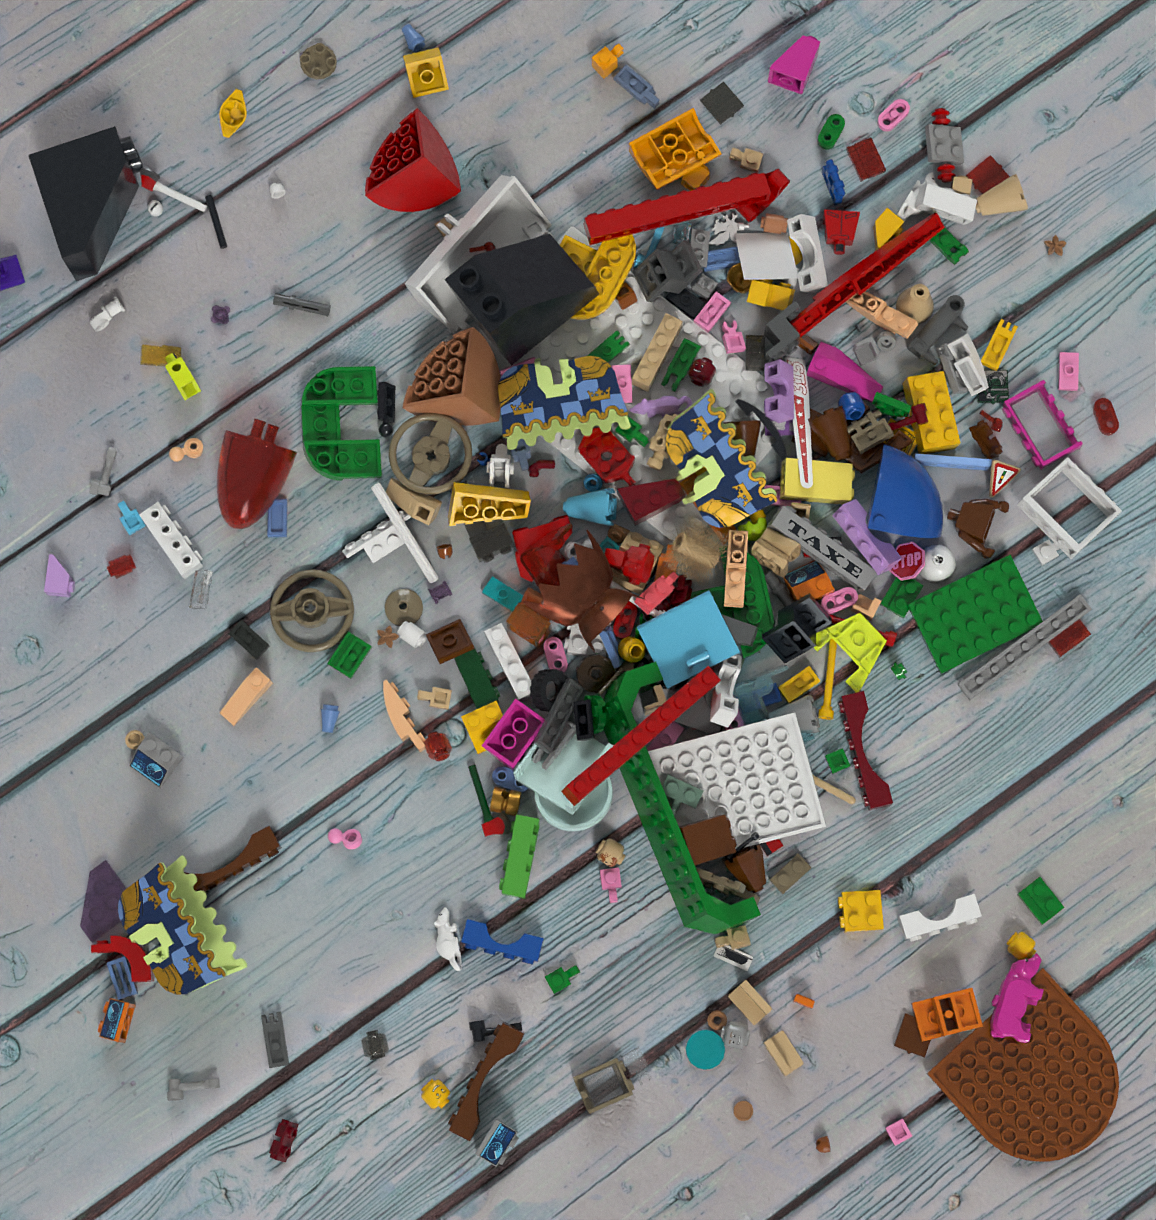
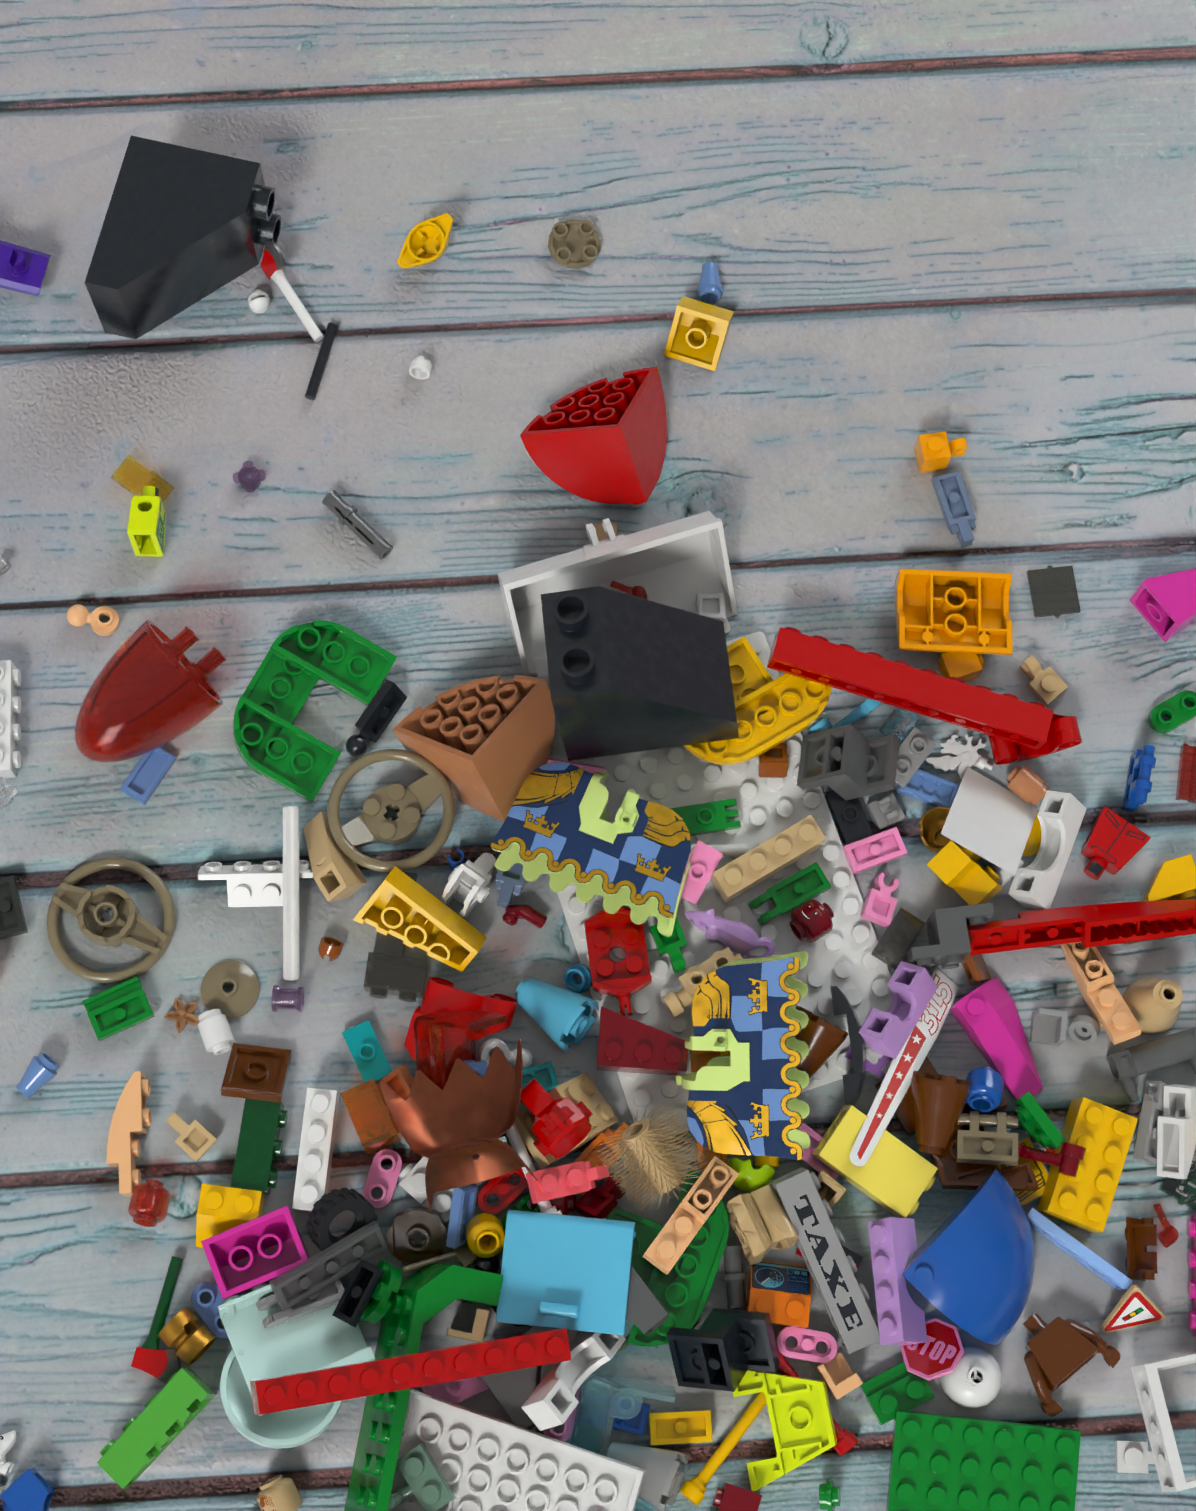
camera: 25 degrees right, 5 degrees down
(110, 310) = (99, 396): white connector -> none
(617, 533) = (568, 1065): medium nougat plate -> none

